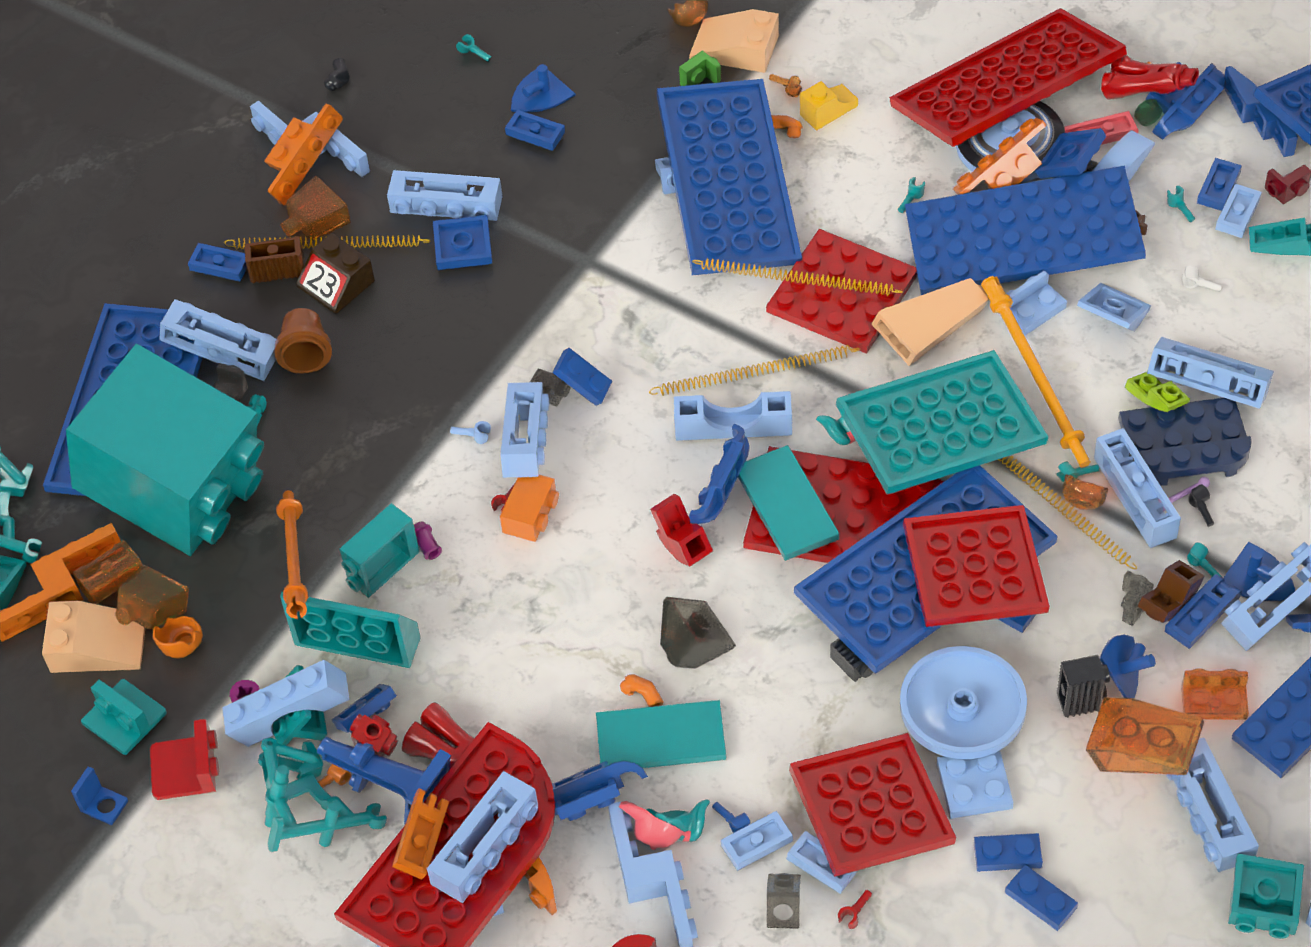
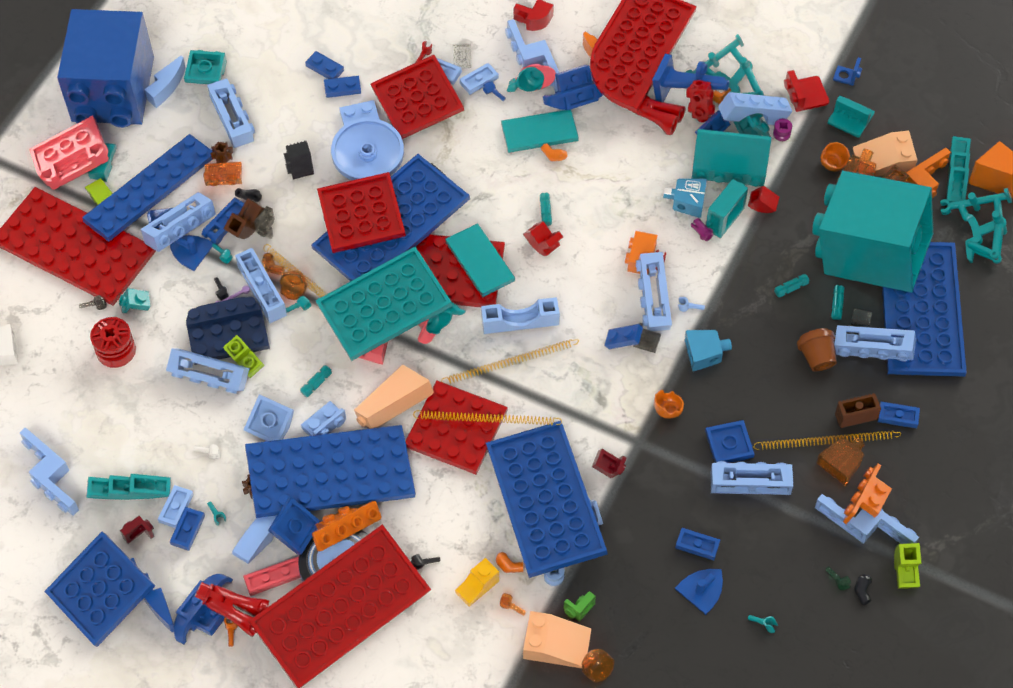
camera: 170 degrees right, 5 degrees up
(274, 83) = (906, 563): none -> lime brick
(295, 593) = (761, 132): orange bar -> none
(311, 448) = (791, 285): none -> teal axle
(319, 577) = (763, 200): none -> red brick
(335, 273) = (811, 410): dark brown slope -> none
(361, 82) = (842, 583): none -> clear green hand
(420, 835) = (659, 38): orange hinge -> none
(434, 592) = (687, 196): none -> dark azure torso
(465, 361) = (705, 348): none -> dark azure torso
(514, 806) = (610, 55): light blue brick -> none
(536, 288) = (668, 404): none -> orange hair
(632, 225) = (609, 464): none -> dark red bracket
(670, 584) = (545, 208): none -> teal axle
(692, 633) = (526, 182): clear smoke slope -> none
(722, 478) = (521, 266): blue plate -> none
(904, 132) = (418, 562): none -> black hand
(914, 192) = (411, 508): teal hand -> none
(1001, 304) = (345, 402): light orange bar -> none
(1049, 358) = (315, 381): none -> teal axle
(1123, 534) = (270, 266): none -> clear orange arm
(1124, 662) = (272, 178): blue shield -> none
(1143, 738) = (265, 132): clear orange slope -> none
(1148, 112) = (236, 586): clear green tile -> none
(1170, 653) = (252, 194): none -> black arm
(1220, 728) = (221, 152): none -> reddish brown gear

